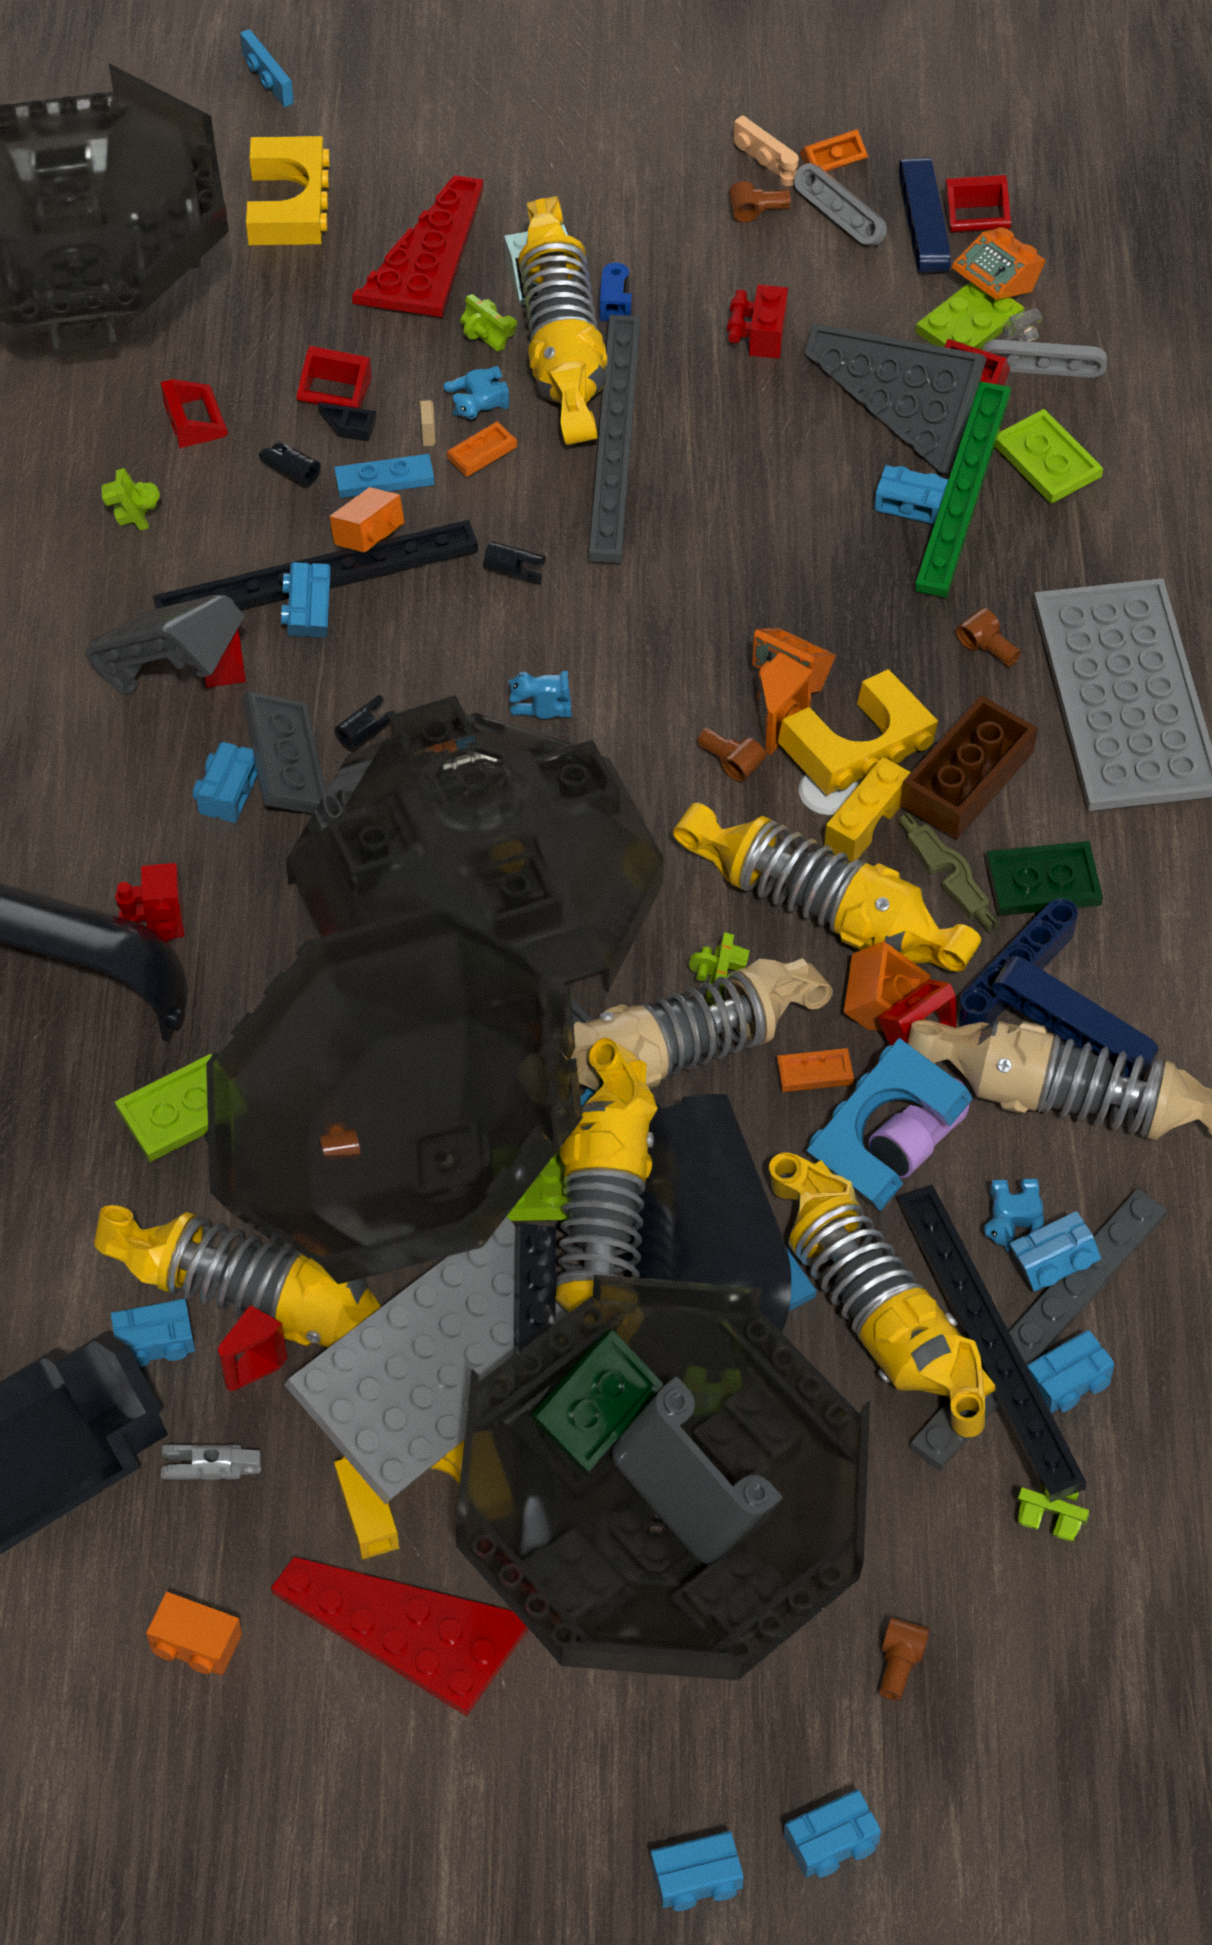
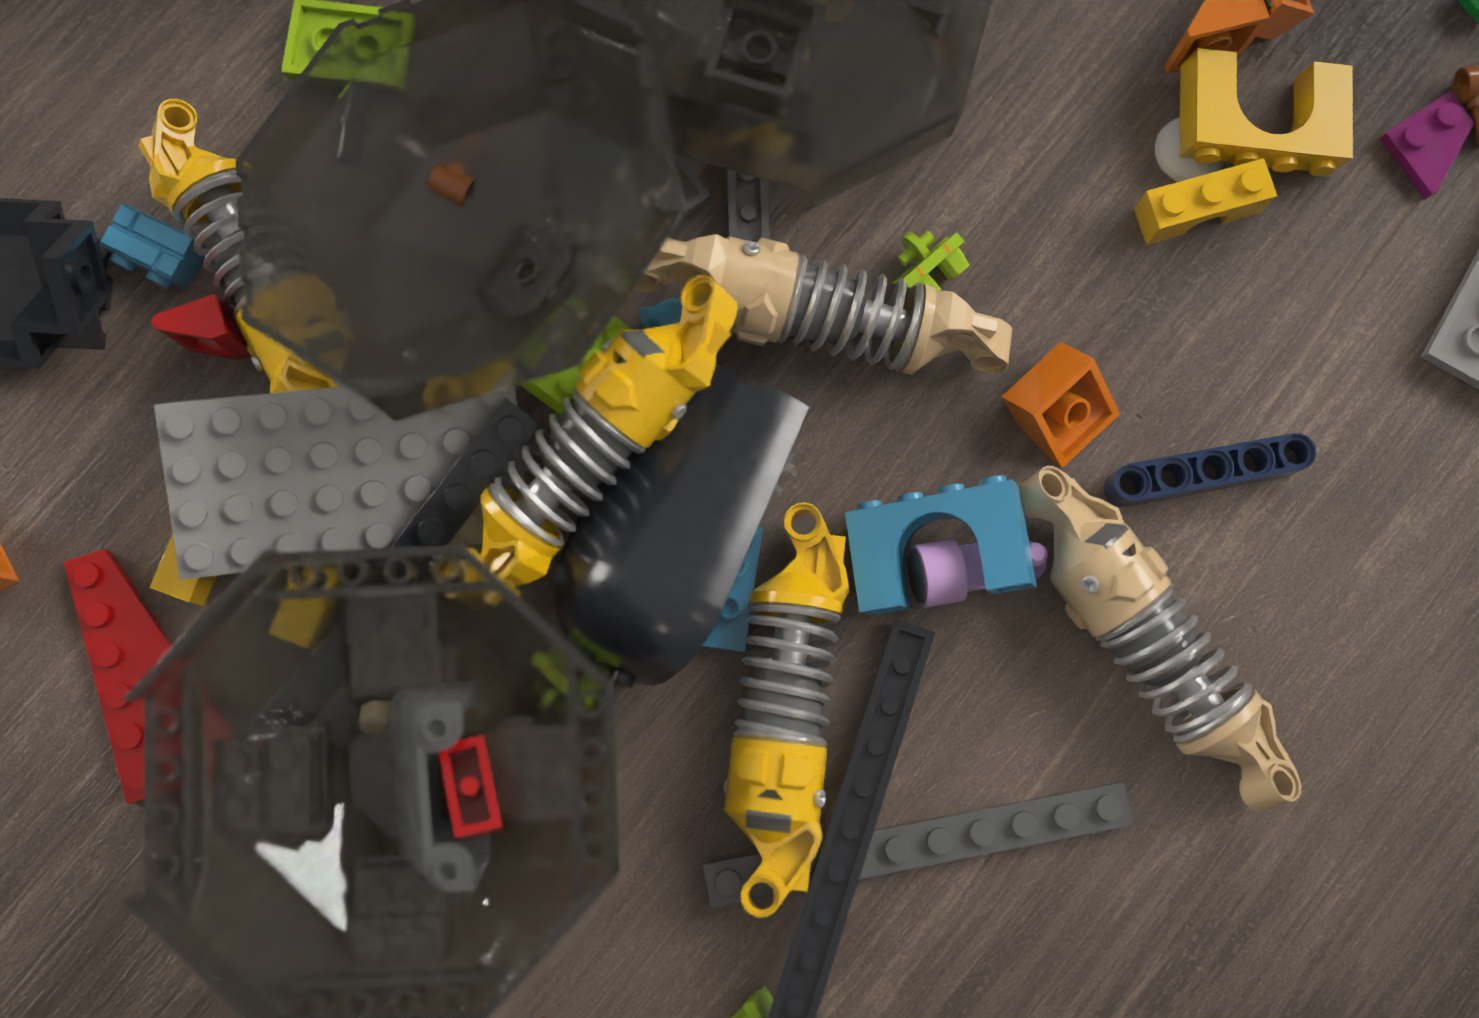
camera: 40 degrees right, 25 degrees up
(210, 1462) = (120, 417): light grey hinge -> none
(597, 1400) = (400, 646): dark green plate -> none
(609, 1494) = (375, 719): none -> dark tan tile
(727, 1451) = (470, 789): none -> red brick
(736, 757) = (1129, 53): dark orange pin -> none
(815, 1070) = (929, 431): orange plate -> none
(856, 898) = (1110, 295): yellow piece -> none
(916, 1006) = (1067, 449): red tile -> none
(957, 886) = (1231, 299): olive piece -> none
(968, 767) = (1342, 227): reddish brown brick -> none
(974, 676) = (1429, 142): none -> magenta wing
(1013, 1210) = (994, 718): dark azure animal -> none
(1036, 875) = (1314, 397): dark green plate -> none
(1055, 1251) = (986, 793): dark azure brick -> none
(1070, 1013) = (1211, 569): dark blue beam -> none
(1072, 1372) = (899, 915): dark azure brick -> none

